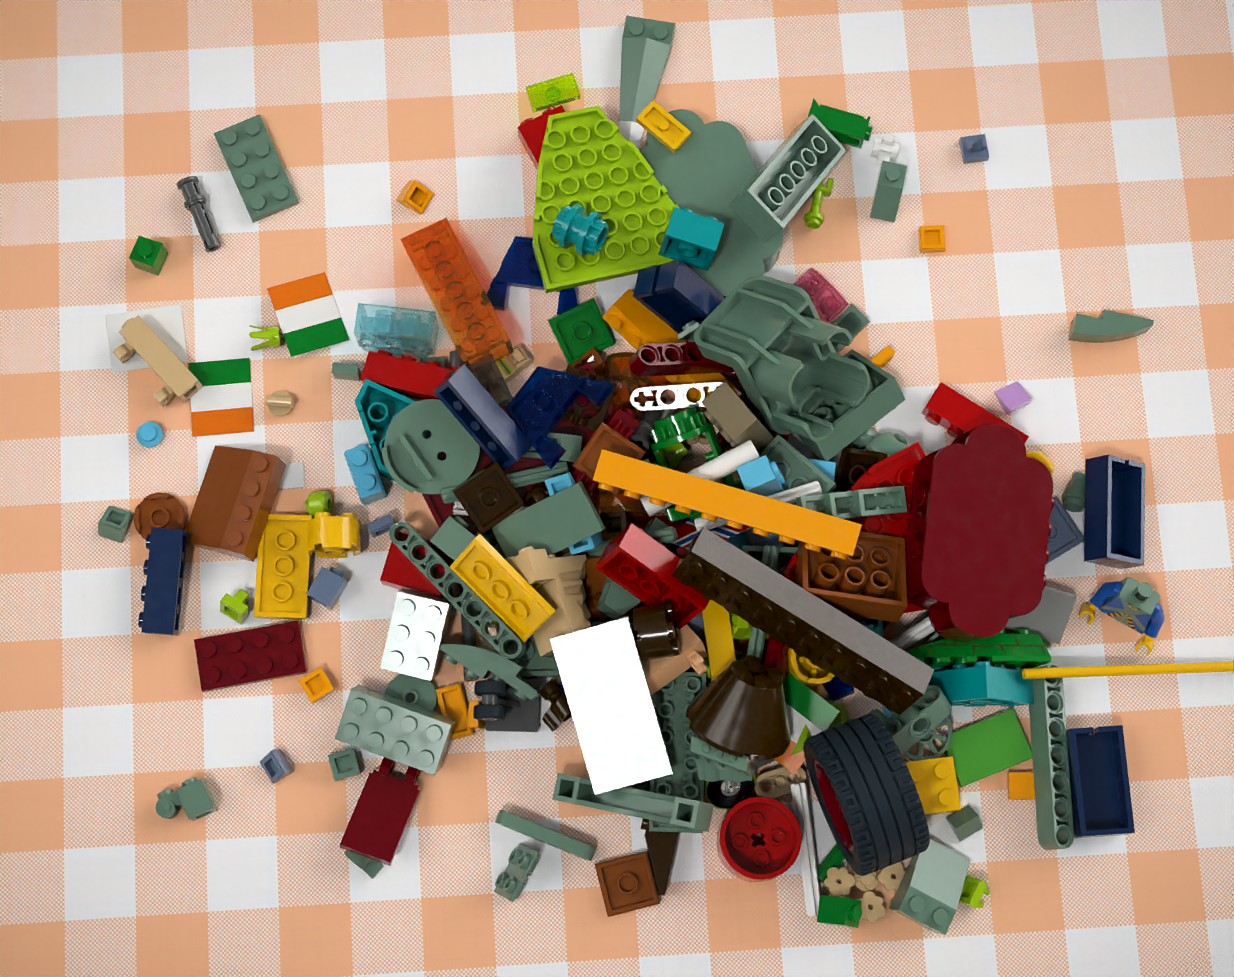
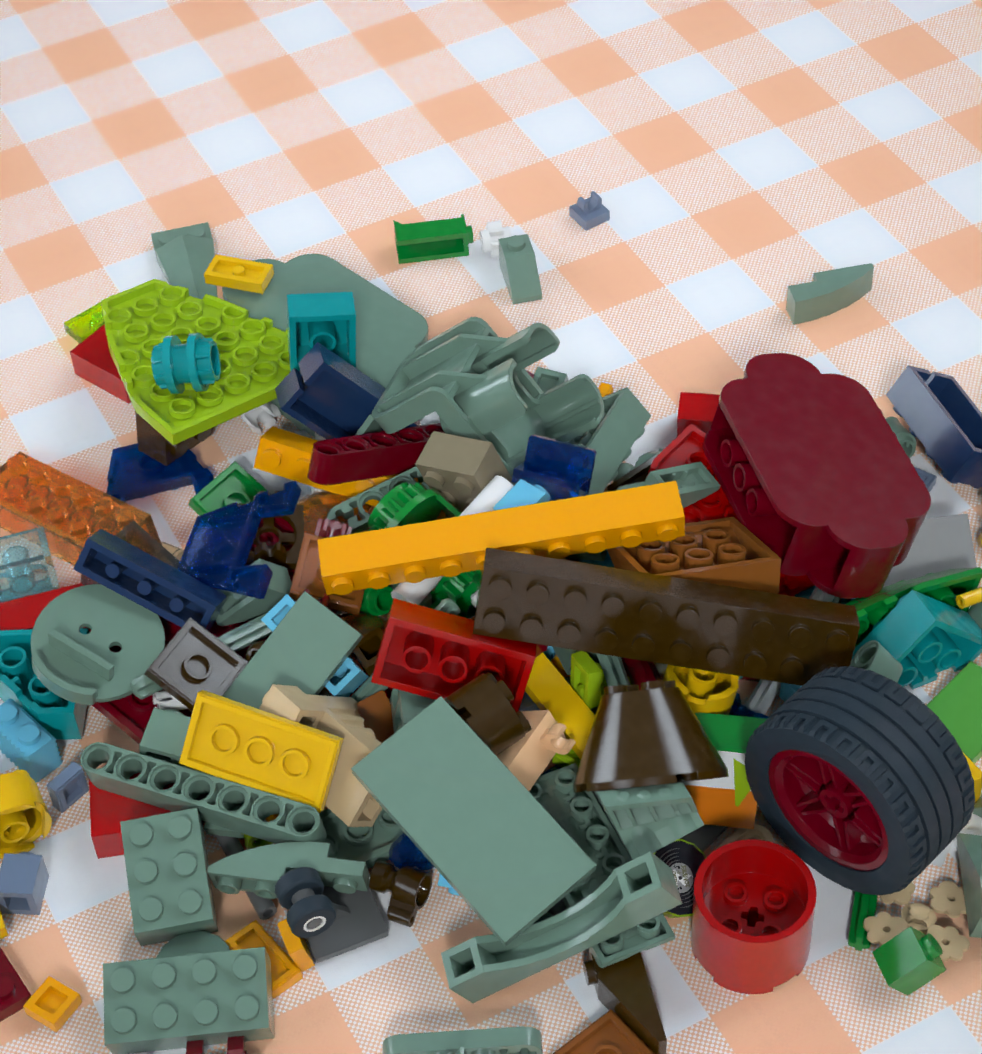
camera: 20 degrees left, 30 degrees down
(787, 178) = (401, 270): sand green brick -> none
(795, 452) = (557, 466): none -> clear blue bracket
(807, 849) = (842, 937): white axle -> none
(813, 218) = (450, 315): lime hinge -> none
(931, 239) = (591, 295): light orange tile -> none

